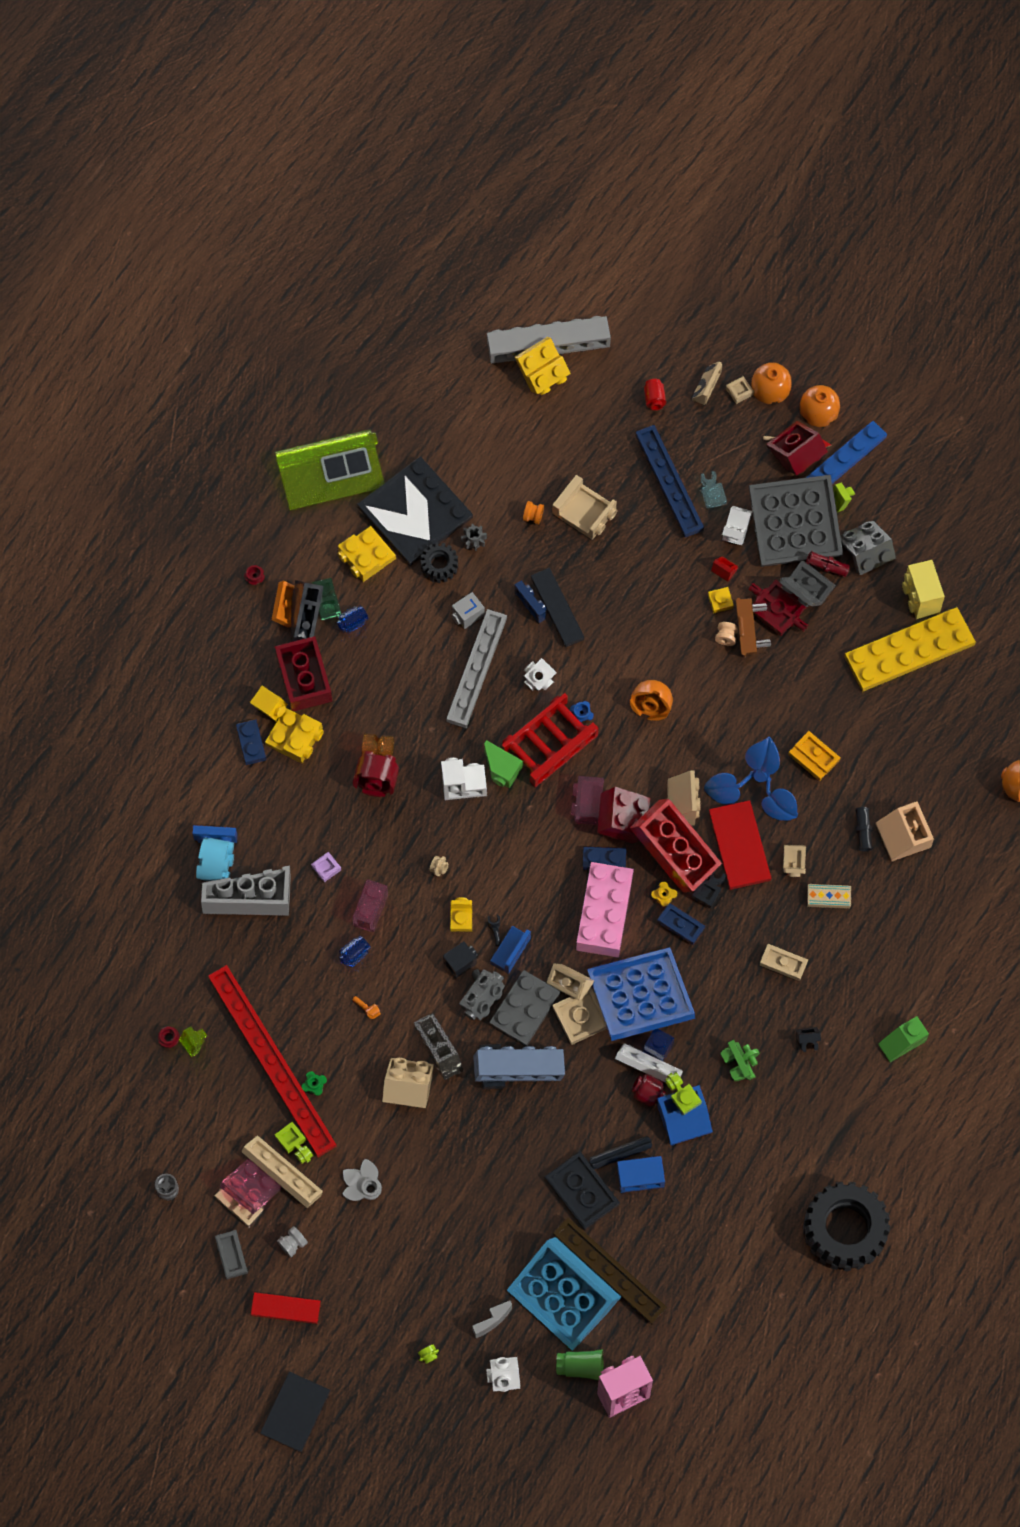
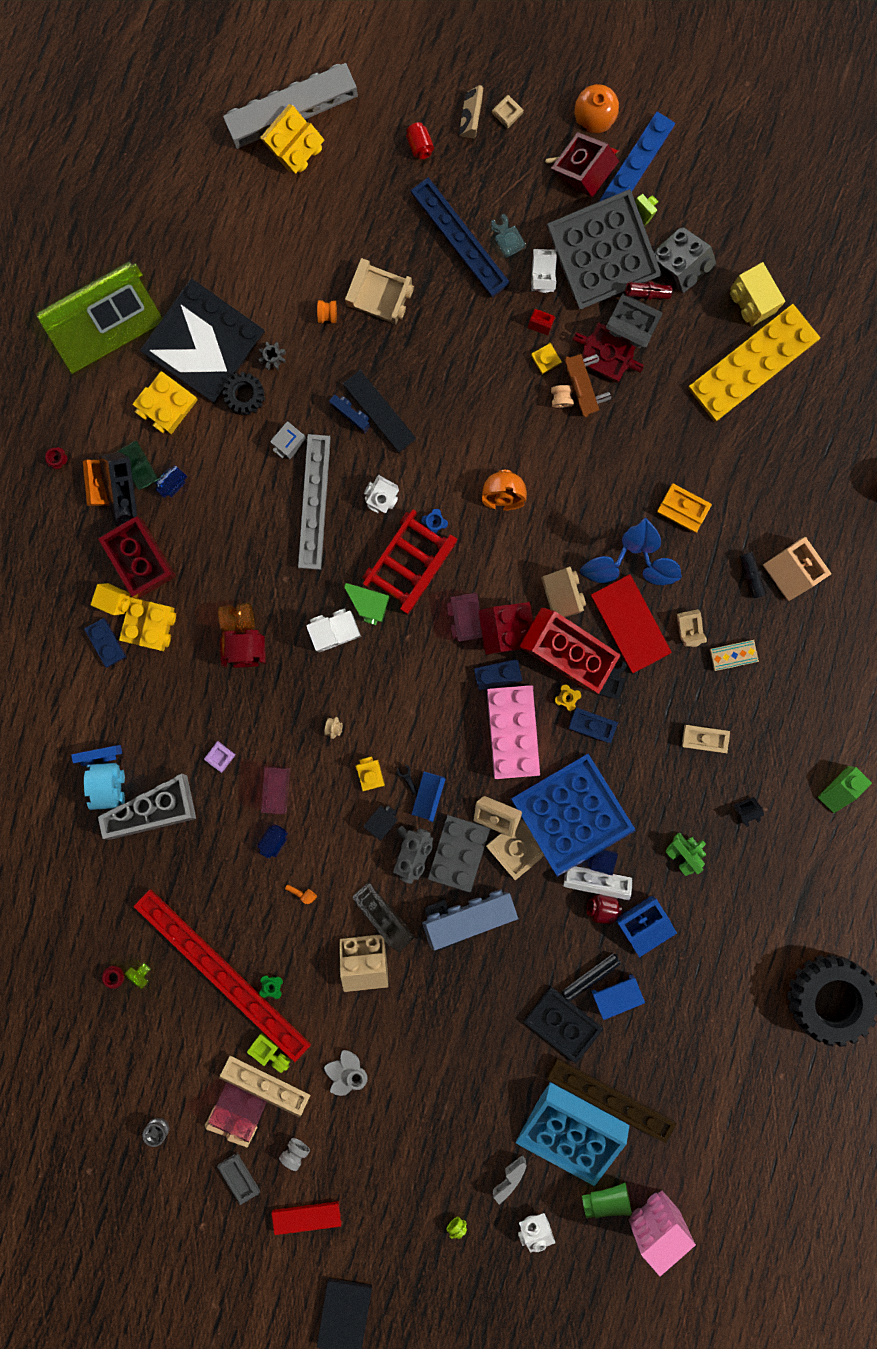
camera: 10 degrees left, 20 degrees up
(684, 1098) = (645, 918): lime plate -> none
(771, 383) = (539, 95): orange cylinder -> none

